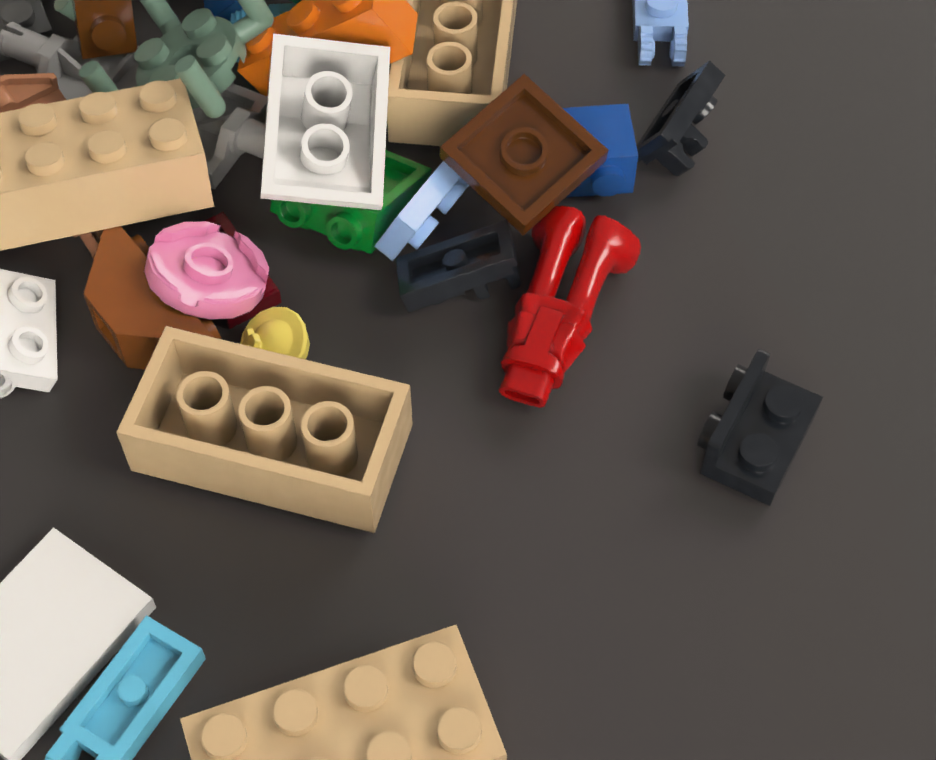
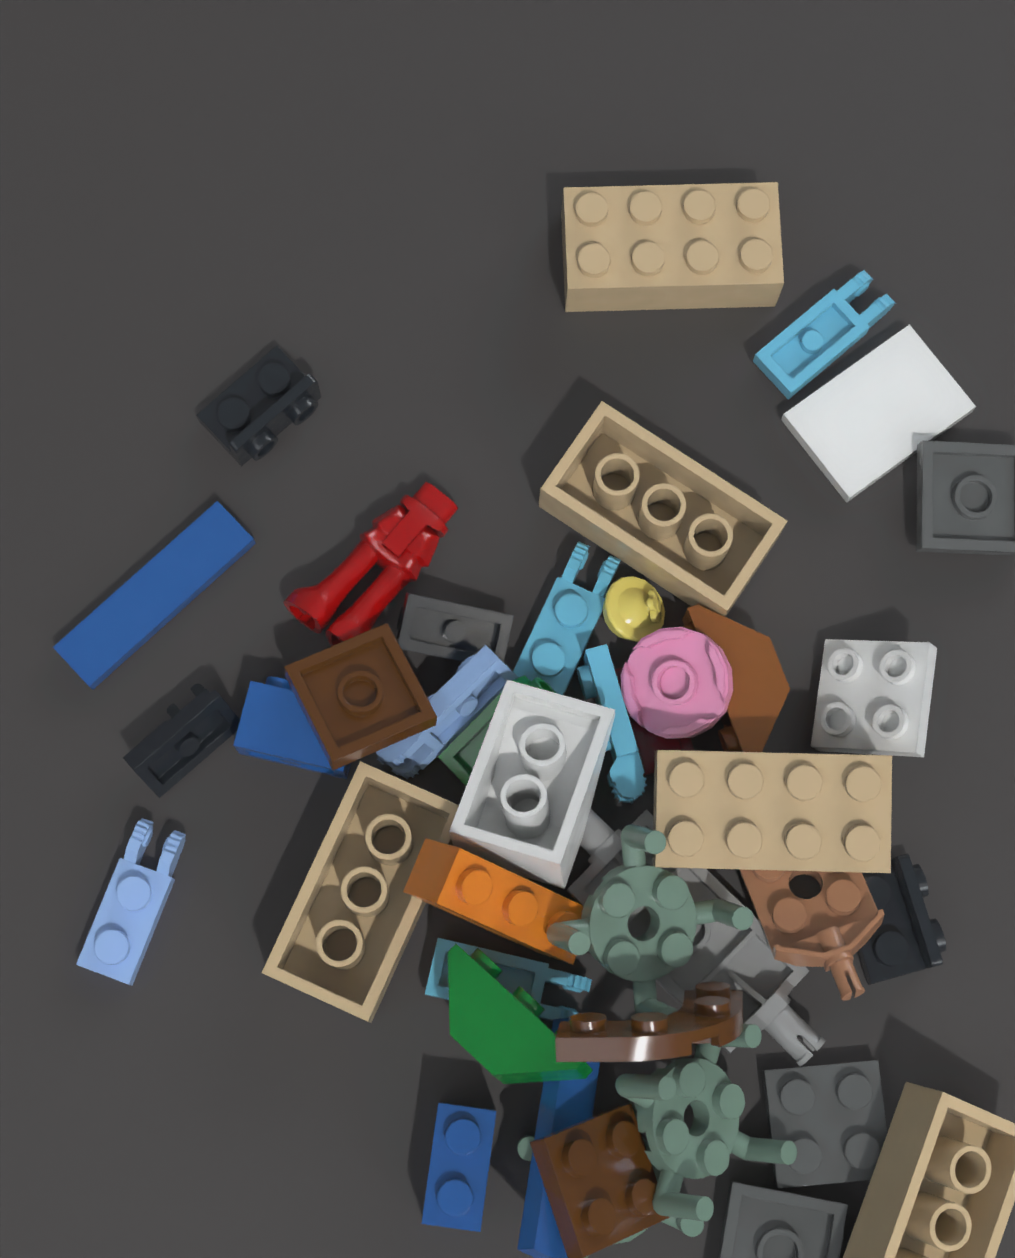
camera: 165 degrees left, 20 degrees up
(289, 268) = (600, 682): none -> medium azure hinge
(347, 309) = (565, 623): none -> medium azure hinge
(770, 236) = (154, 595): none -> blue tile

